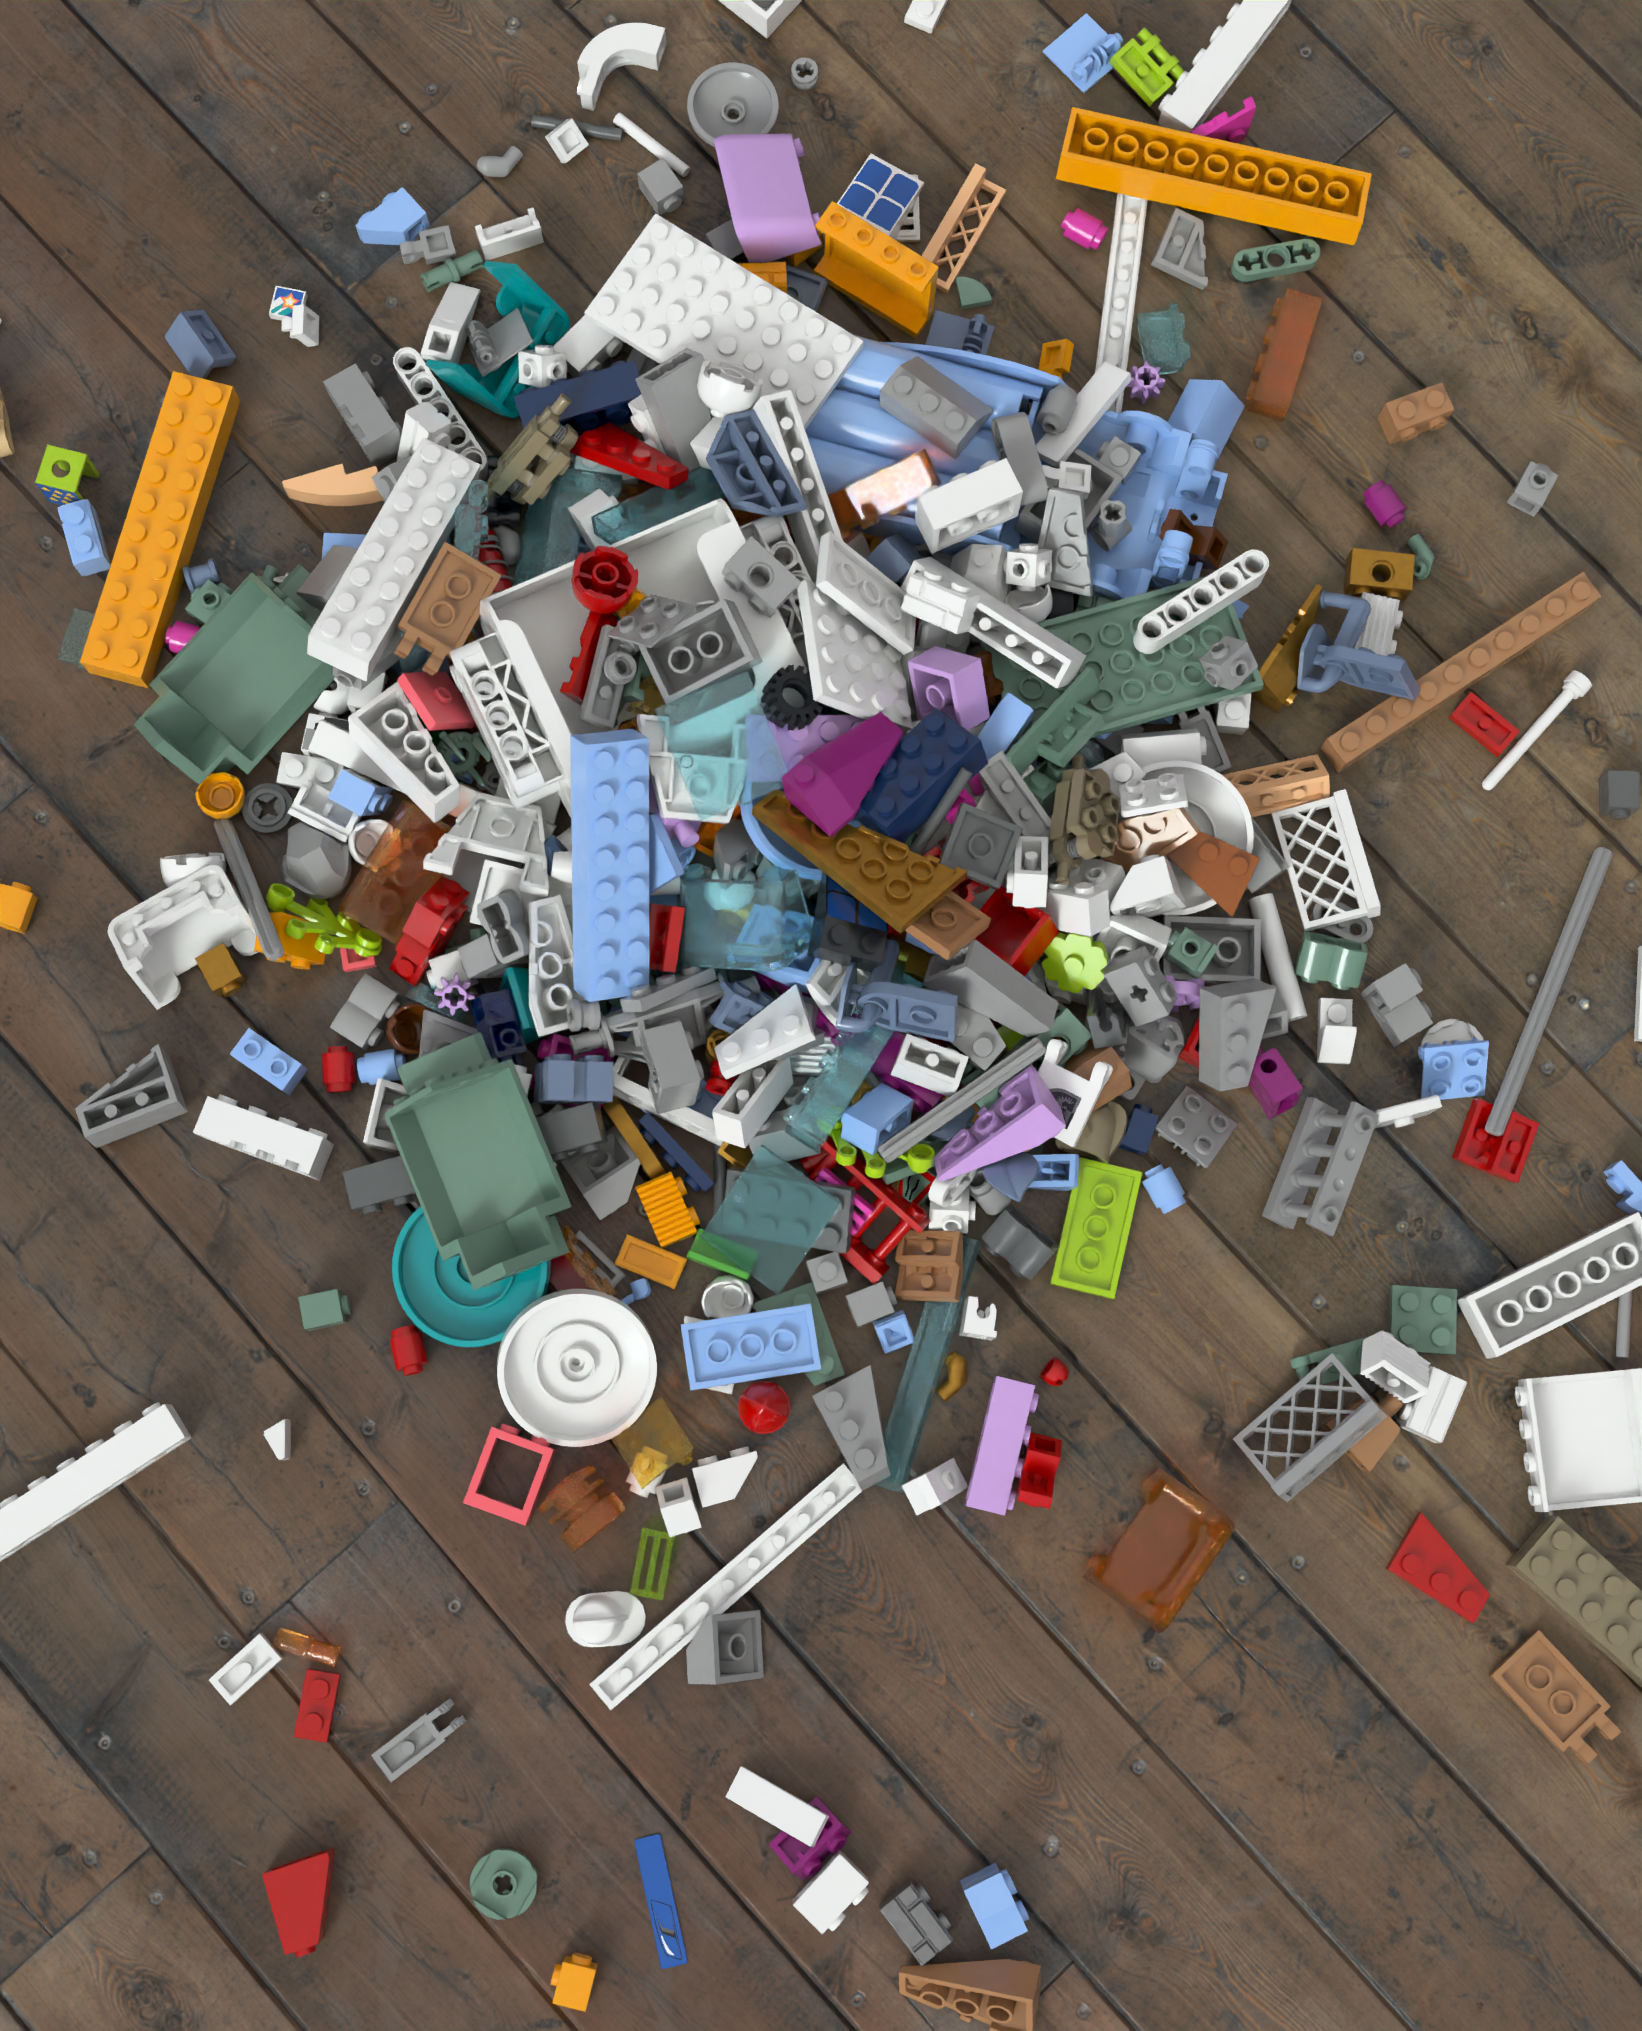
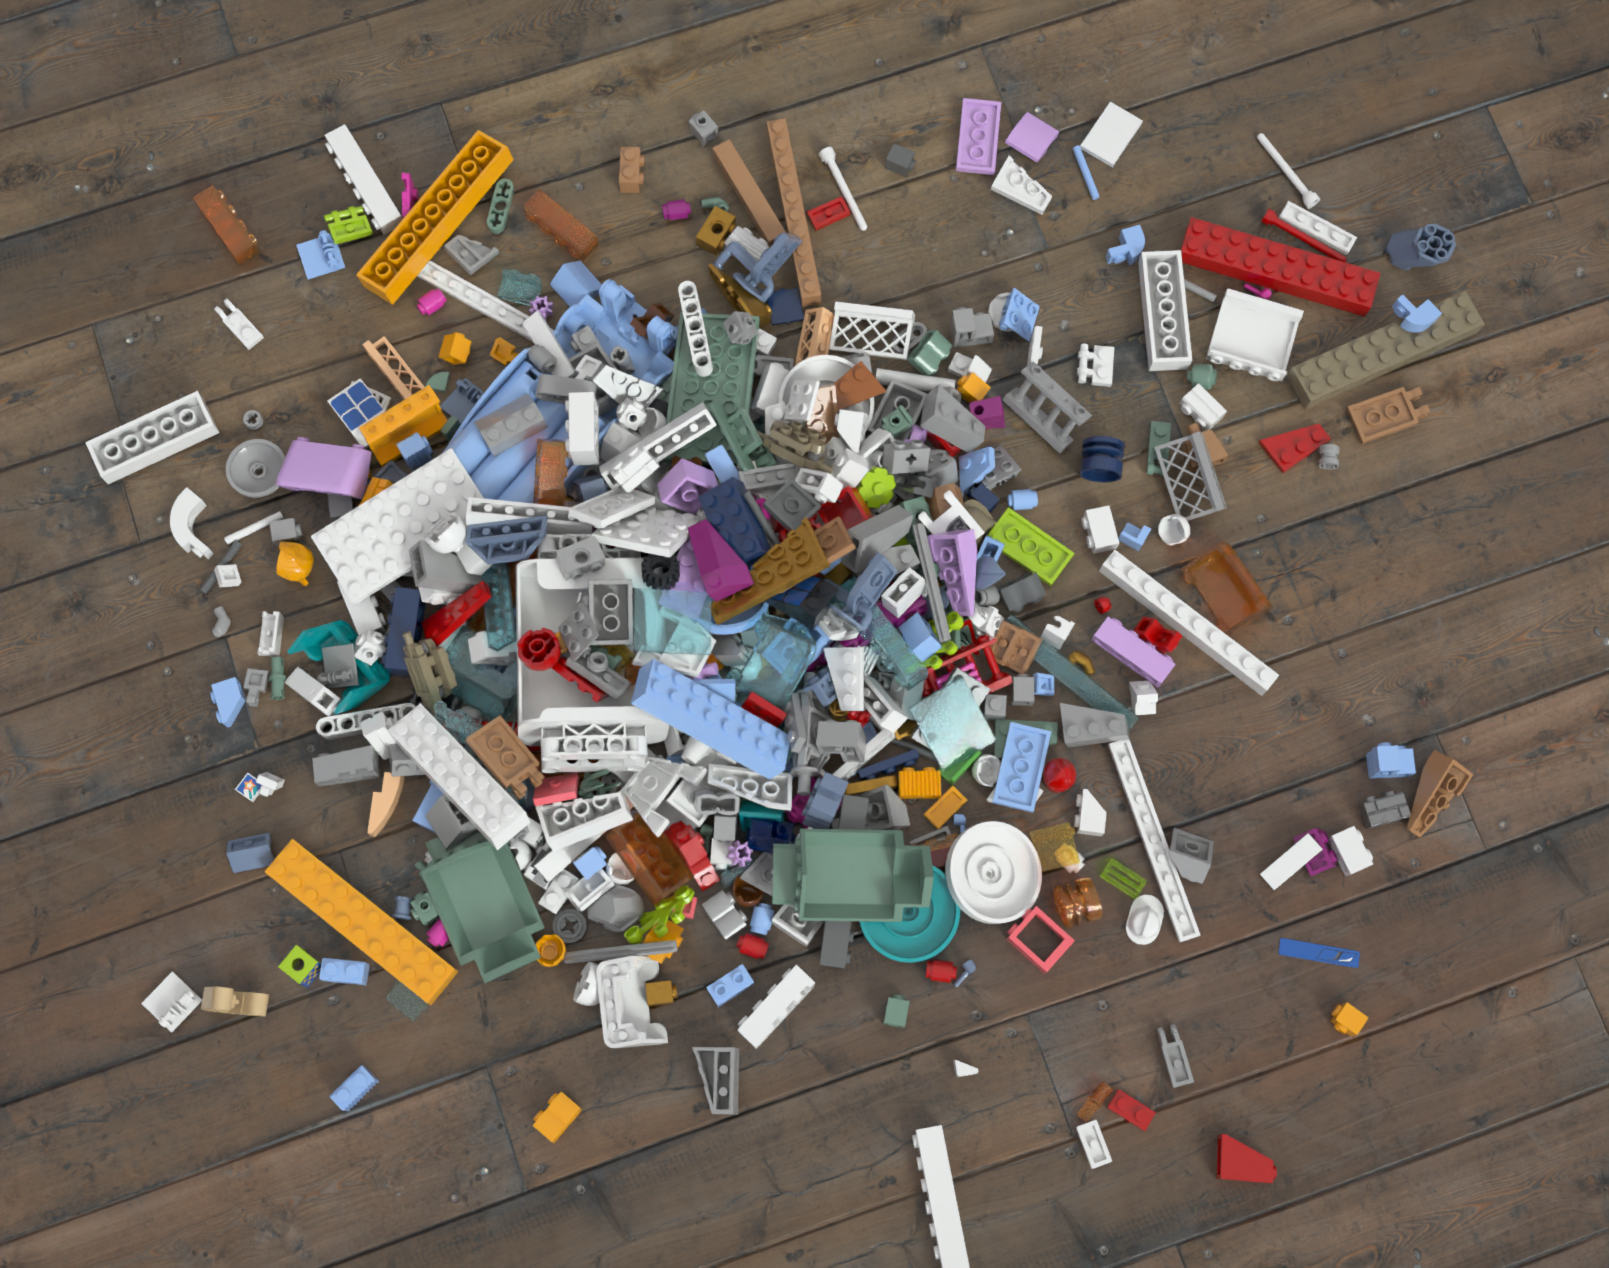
camera: 65 degrees left, 5 degrees down
(431, 1389) = (969, 968): none -> sand blue hand
(484, 1887) = (1289, 1040): sand green plate -> none
(583, 1015) = (789, 778): light grey wheel -> none
(621, 215) = (294, 562): none -> light orange helmet
(678, 1507) = (1098, 847): white brick -> none
(850, 302) = (415, 451): none -> light blue brick
(909, 334) = (450, 428): none -> sand green tile
(1029, 291) = (455, 348): none -> light orange brick
(1080, 1512) = (1188, 623): none -> white brick
(1168, 1323) = (1100, 529): none -> white brick
(1181, 1098) = (974, 467): none -> light blue wing
(1182, 1377) = (1134, 536): none -> light blue panel
(1217, 1434) = (1174, 529): none -> white hair
(1284, 1279) = (1102, 459): none -> dark blue wheel
(1303, 1044) = (972, 387): none -> light orange brick
(1308, 723) = (785, 306): none -> dark blue piece
(1394, 1367) = (1175, 417): white brick -> none
(1424, 1318) = (1152, 393): sand green plate -> none
(1430, 1226) = (1101, 368): none -> white plate
(1440, 1631) = (1329, 456): none -> light grey wheel
(1462, 594) = (747, 191): none -> medium nougat brick
(1484, 1384) = (1202, 374): none -> sand green head
(1496, 1155) = (1068, 311): red slope -> none
(1548, 992) = (996, 246): light grey axle -> none

